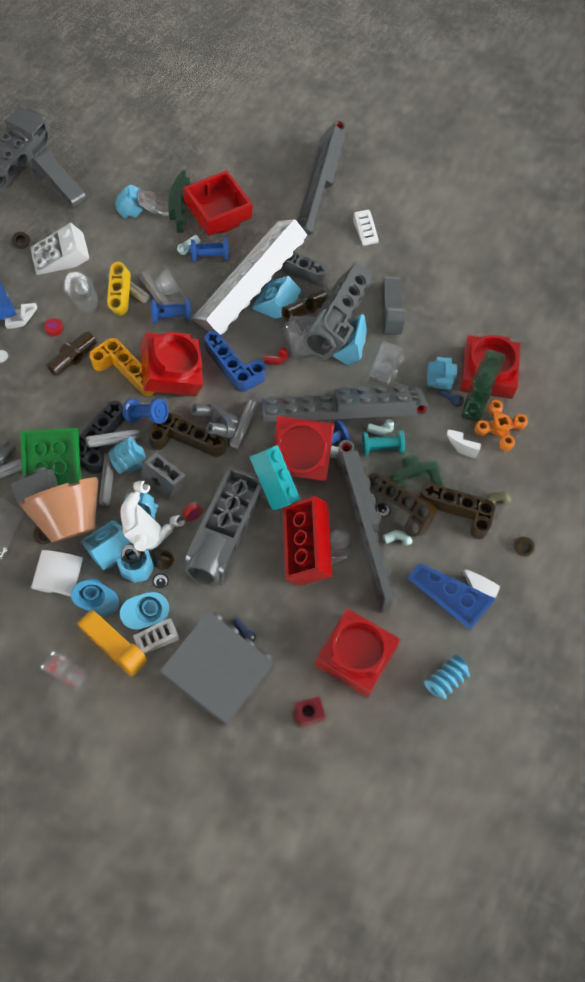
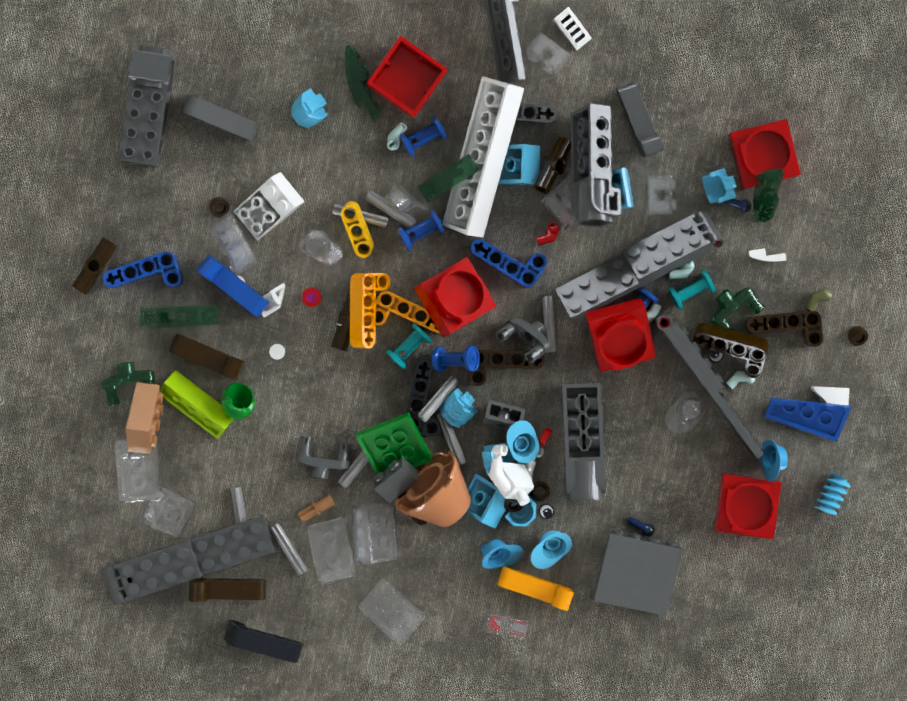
camera: 15 degrees left, 25 degrees up
(15, 263) = (234, 244): none -> clear slope
(56, 572) = (454, 545): white slope -> none
(76, 358) = (363, 307): none -> light orange beam
(112, 389) = (409, 345): none -> teal hose
(151, 203) = (335, 102): clear slope -> none
(168, 499) = (522, 441): none -> medium azure piece
(168, 623) = (580, 553): white slope -> none
(211, 279) = (448, 178): none -> clear green slope
(274, 477) = (611, 381): teal brick -> none
(307, 541) = (663, 426): red brick -> none
(315, 705) = (735, 574): dark red brick -> none
(338, 235) = (544, 44): none -> clear brick
(401, 617) = (773, 460): none -> dark azure piece
(500, 425) = (800, 225): orange gear -> none

